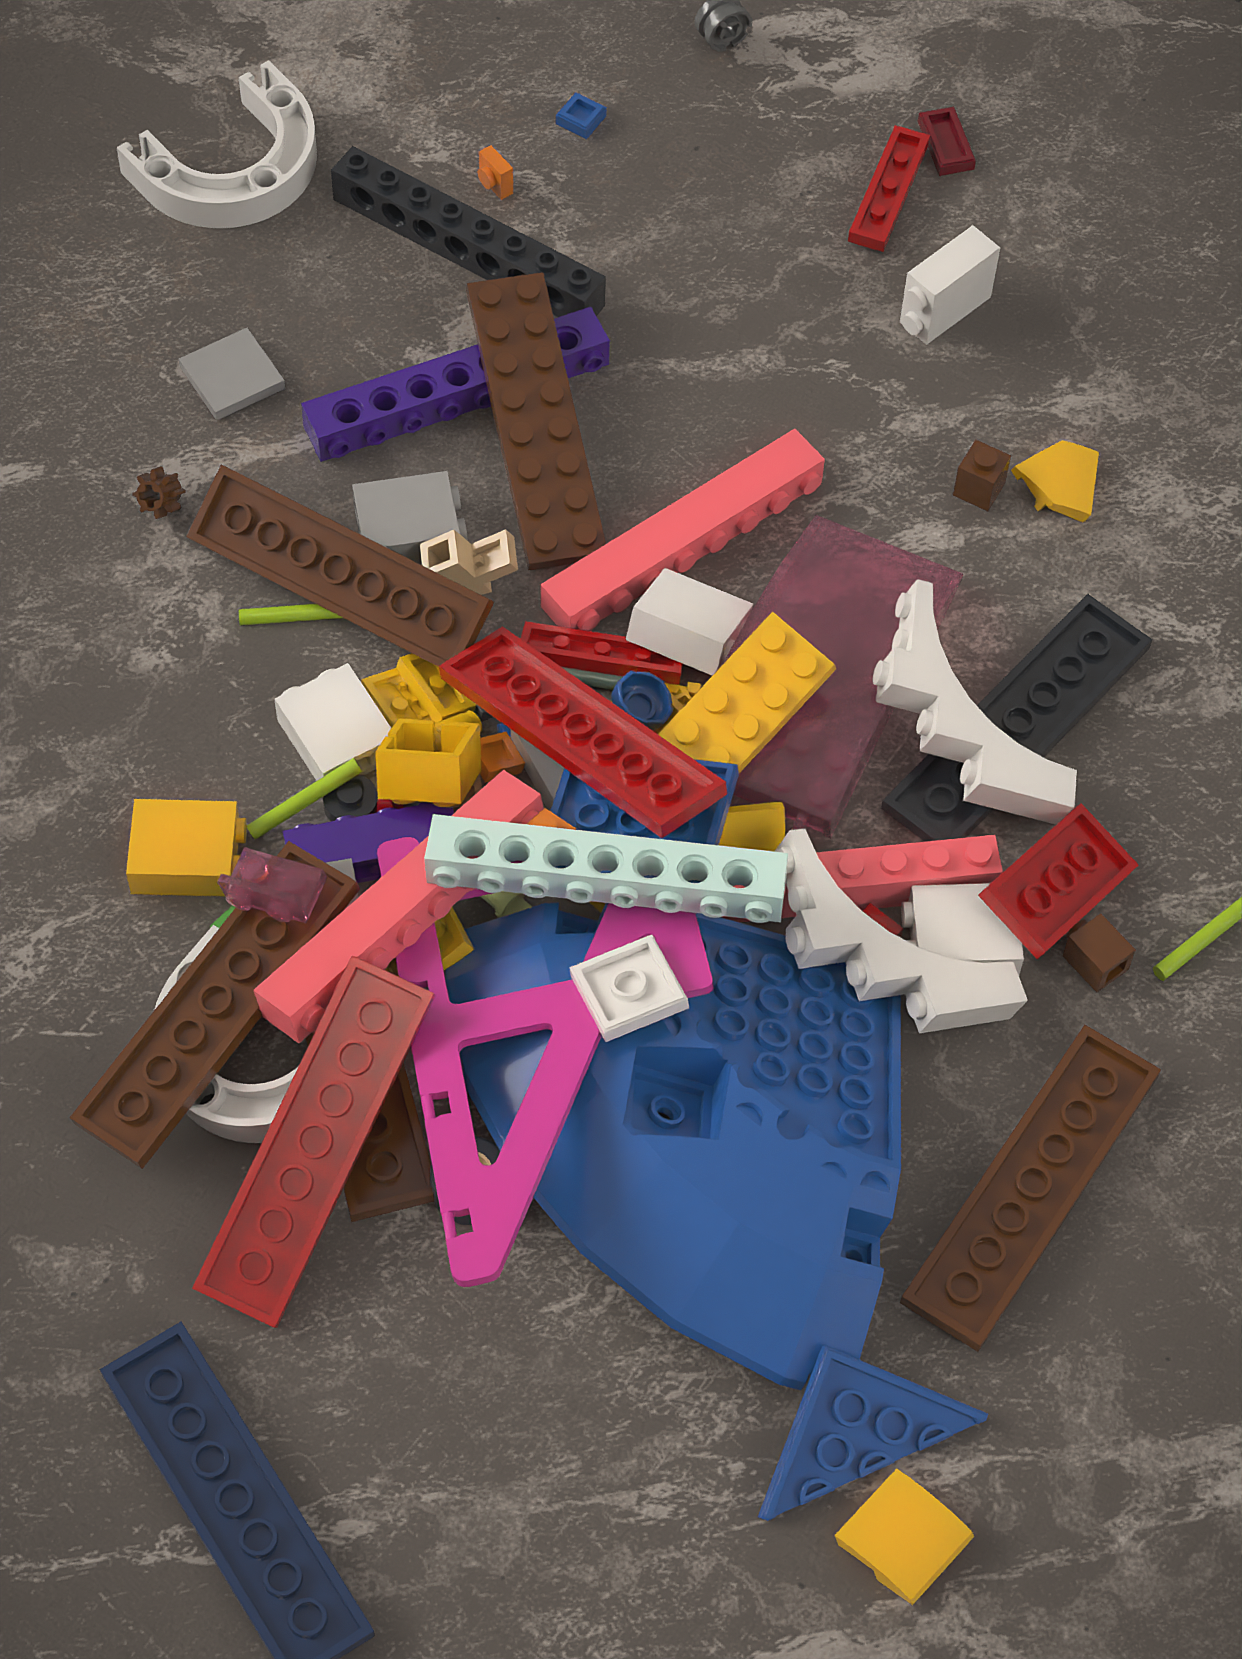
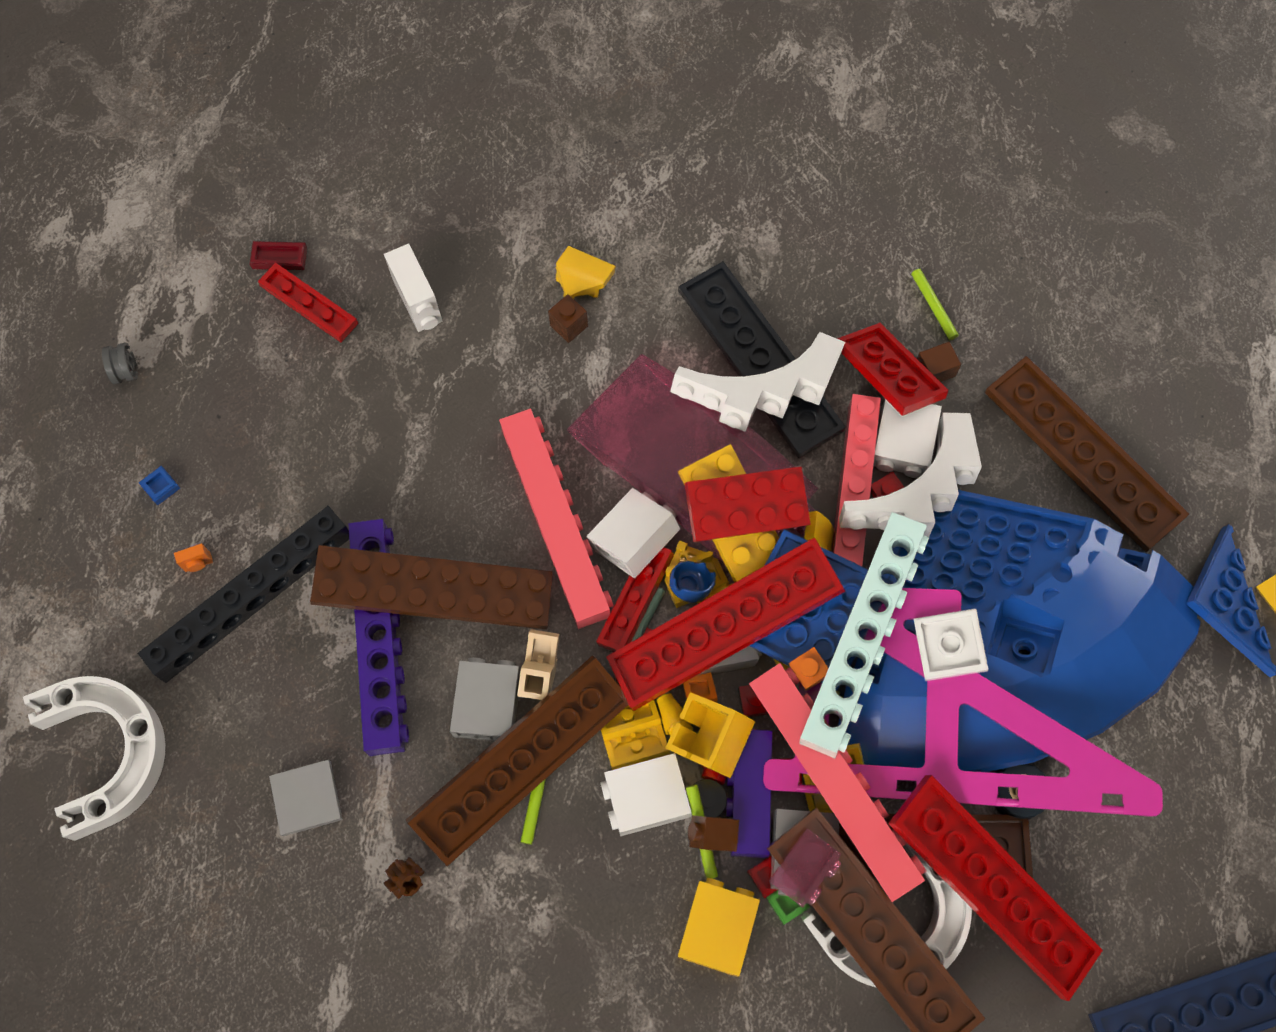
camera: 70 degrees left, 10 degrees up
(300, 797) = (713, 833): none -> reddish brown brick
(756, 708) = (747, 504): none -> red plate

